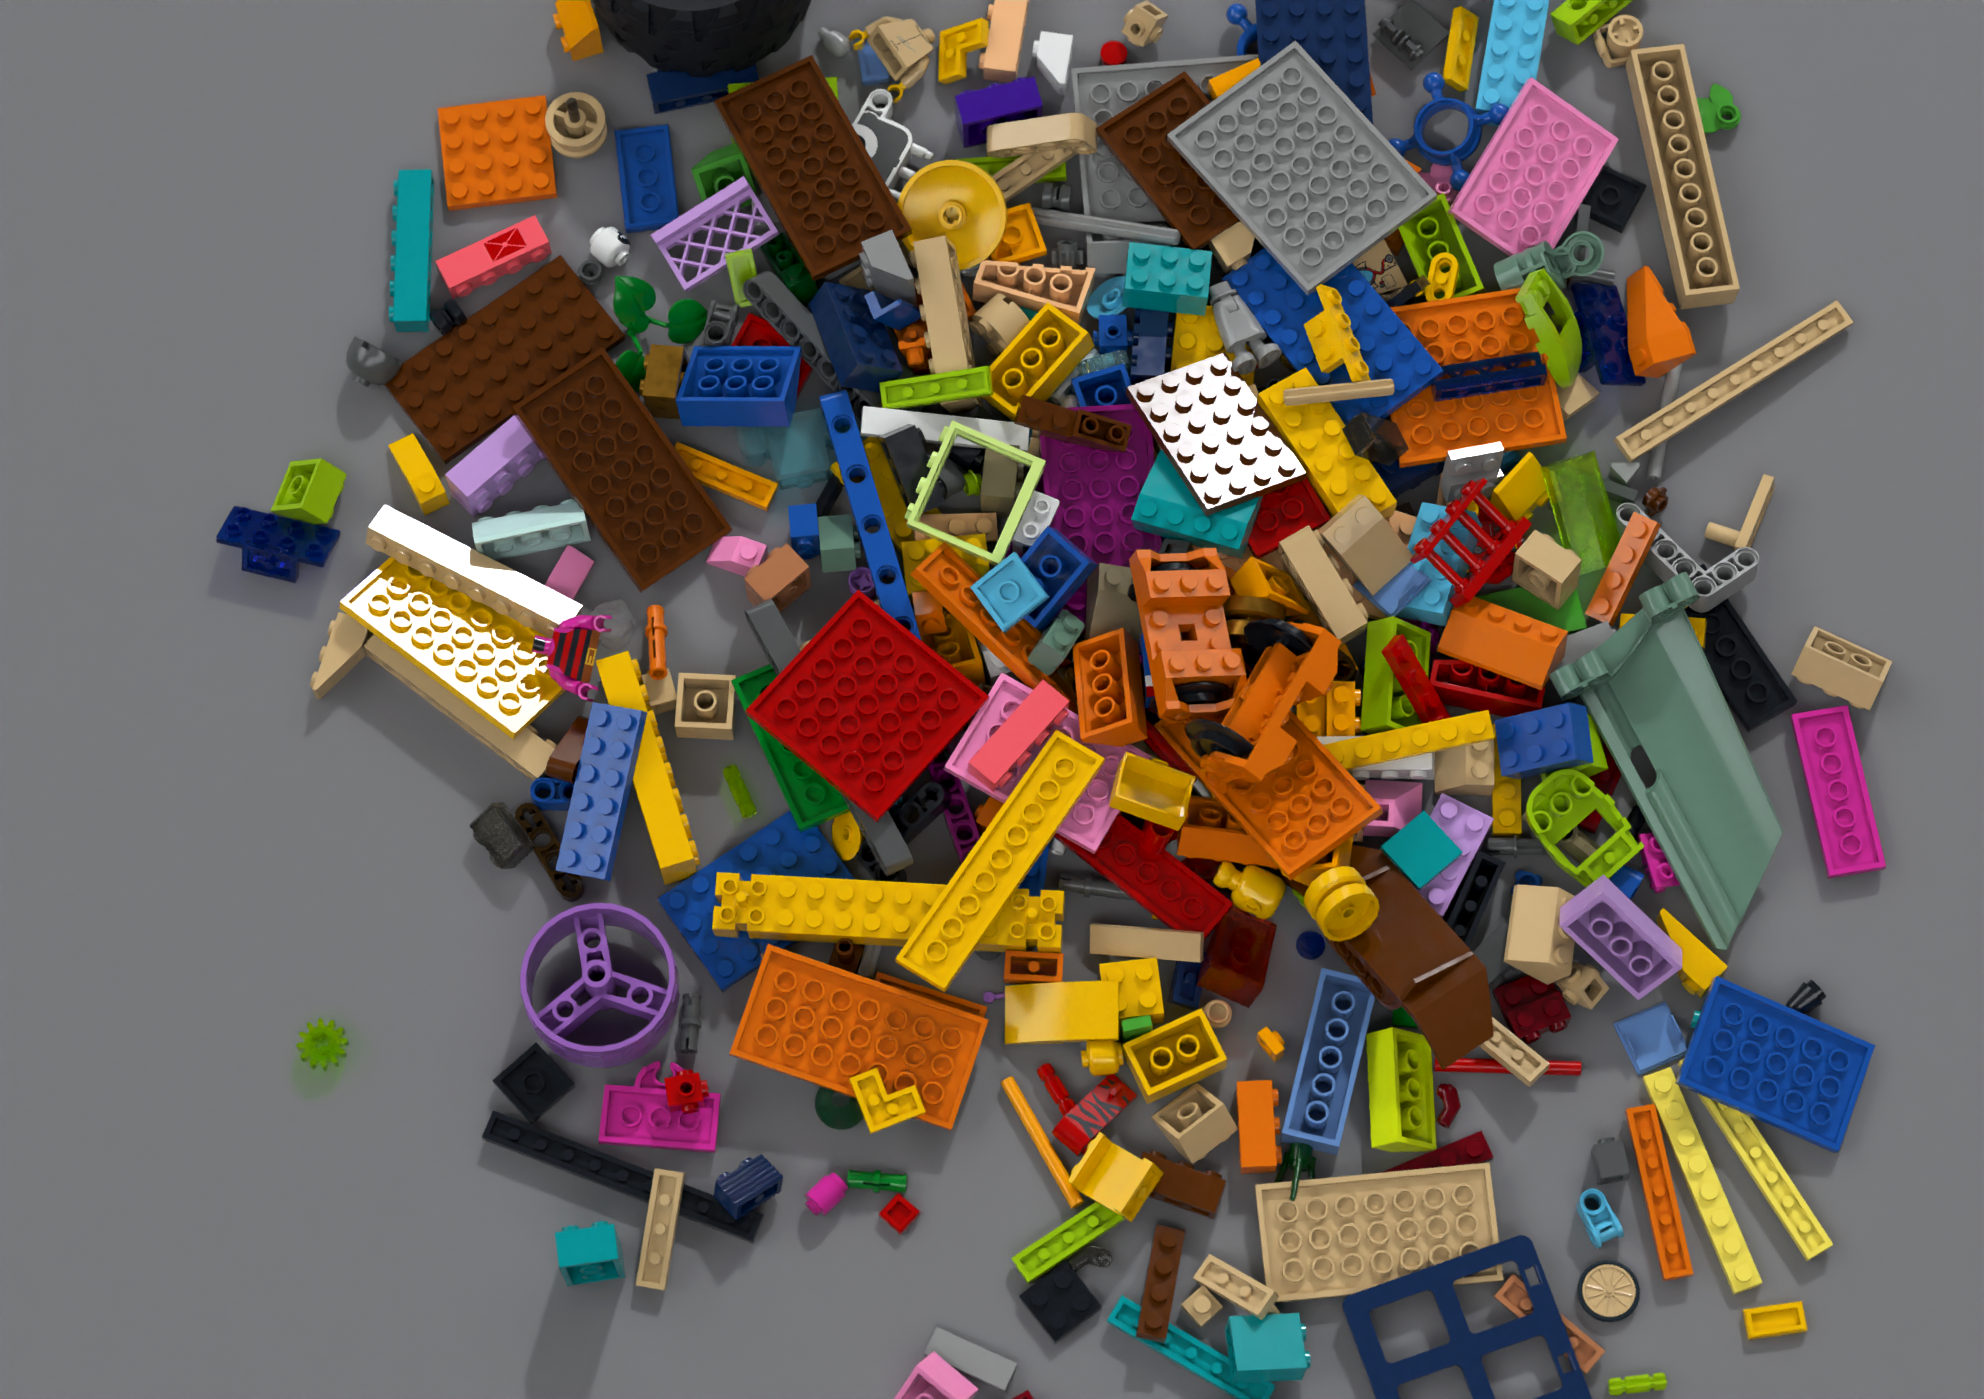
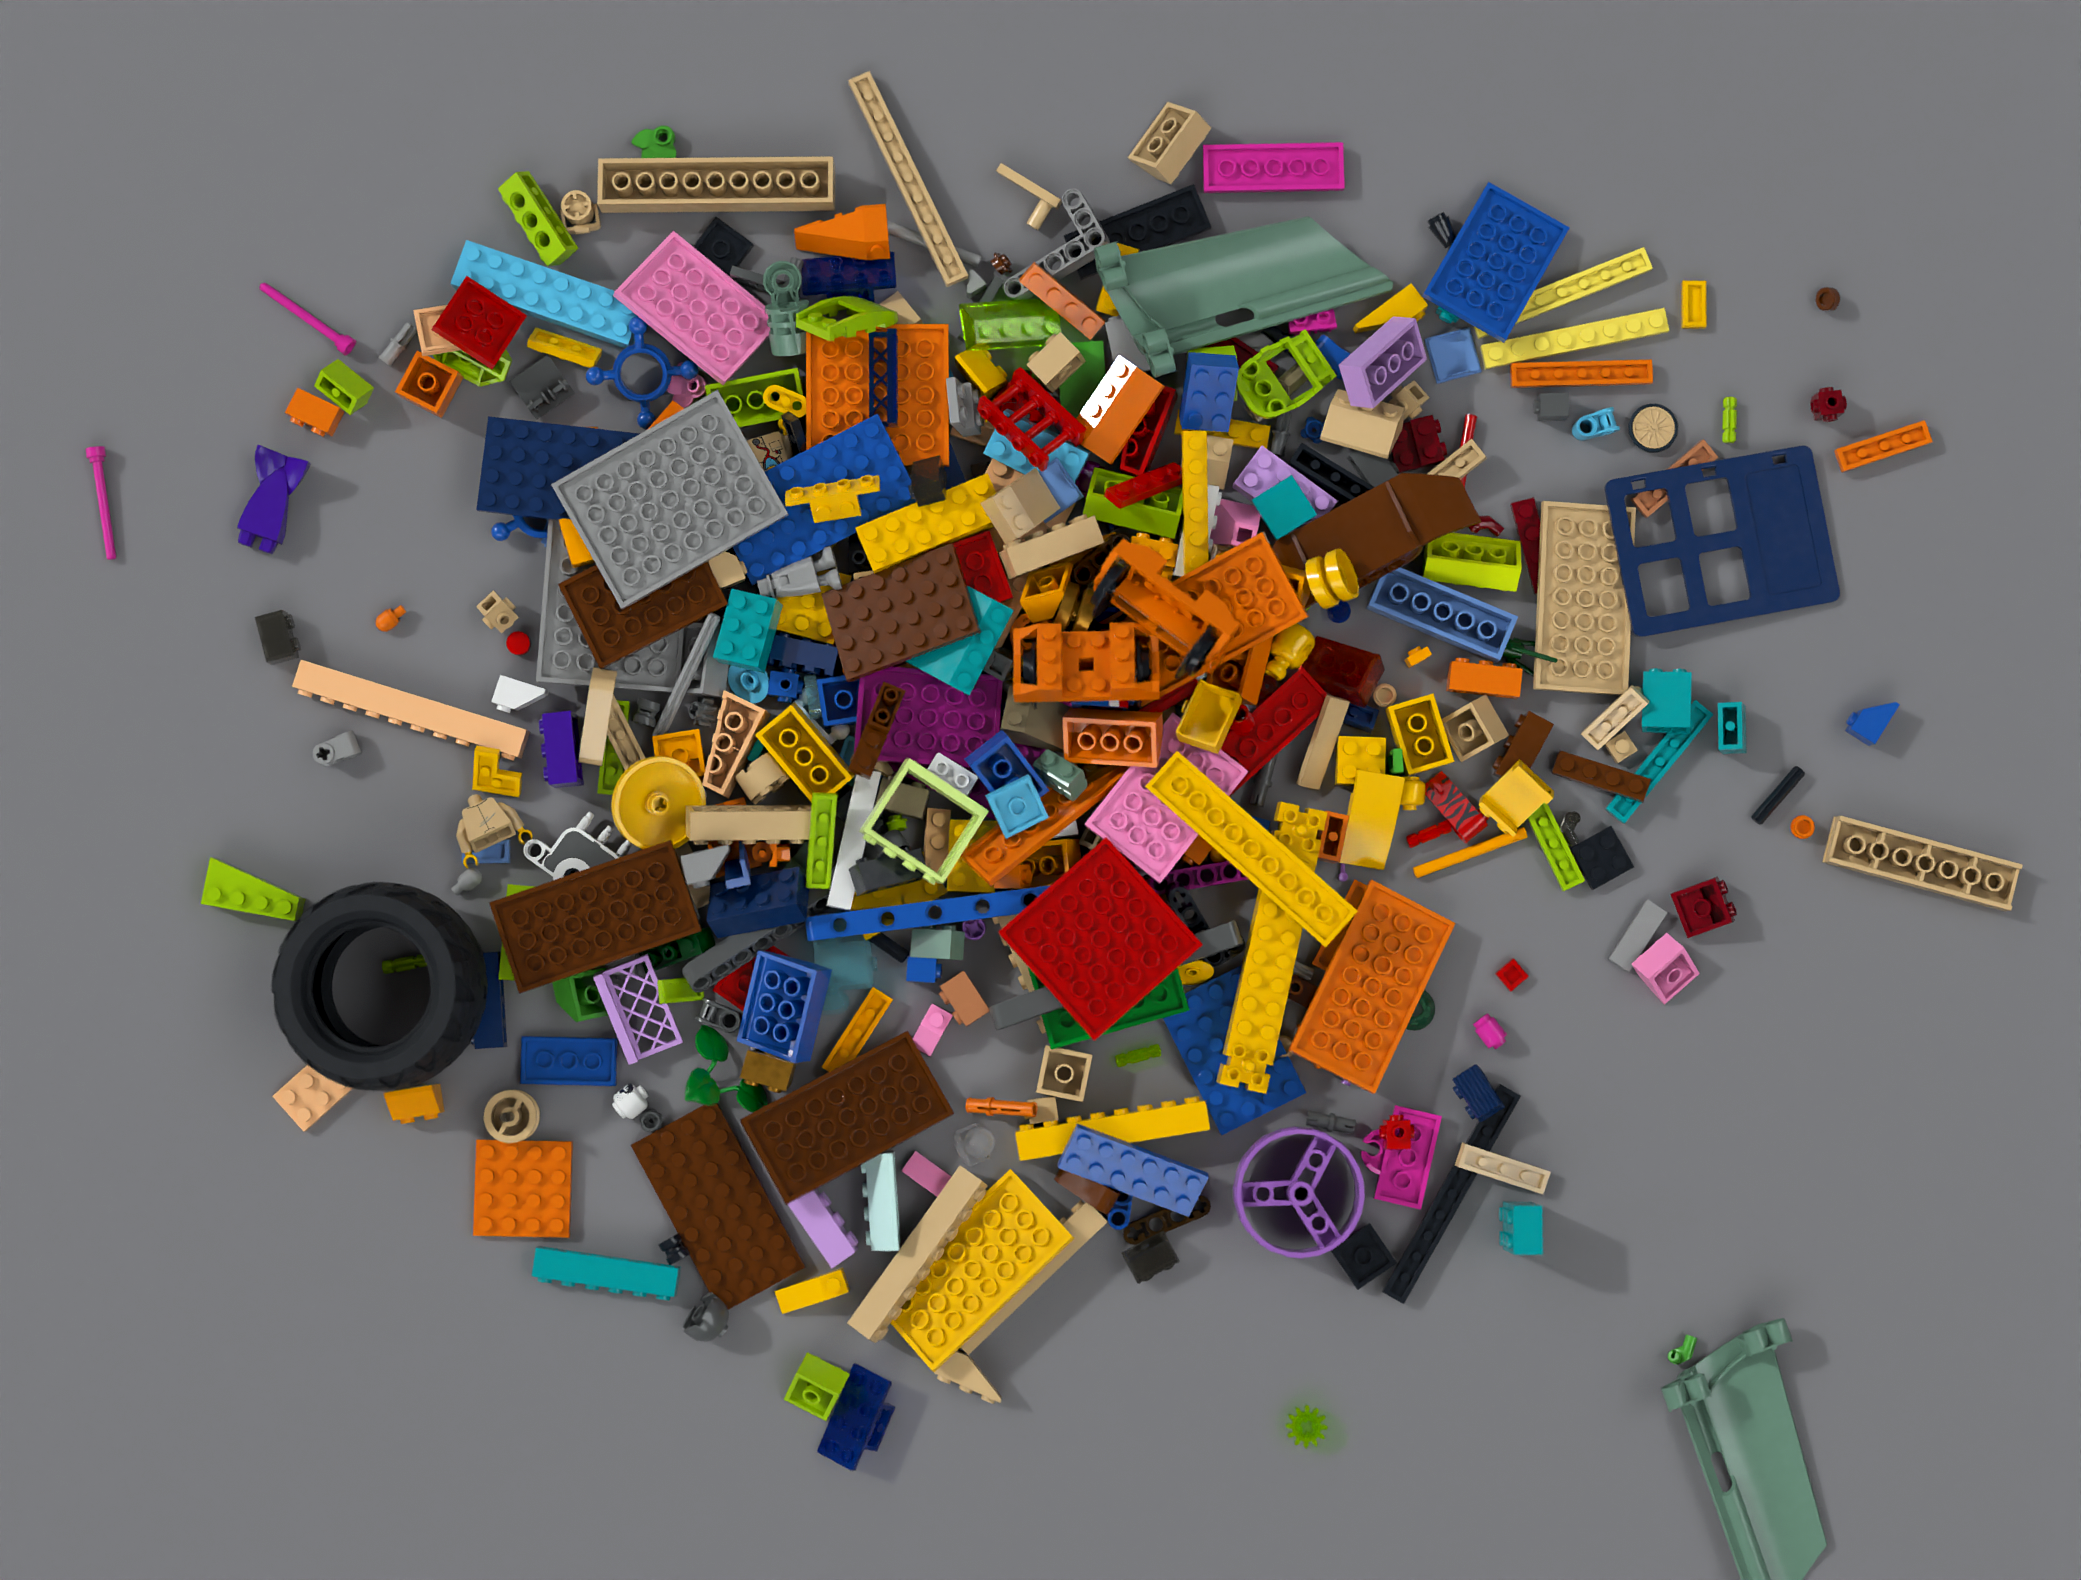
camera: 85 degrees left, 15 degrees up
(493, 257) = (624, 1203): coral brick -> none
(573, 652) = (1007, 1179): torso -> none
(877, 1181) = (1483, 988): green pin -> none
(882, 1109) = (1437, 973): yellow plate -> none
(1018, 736) = (1146, 818): coral brick -> none
(1338, 392) = (885, 504): tan axle -> none

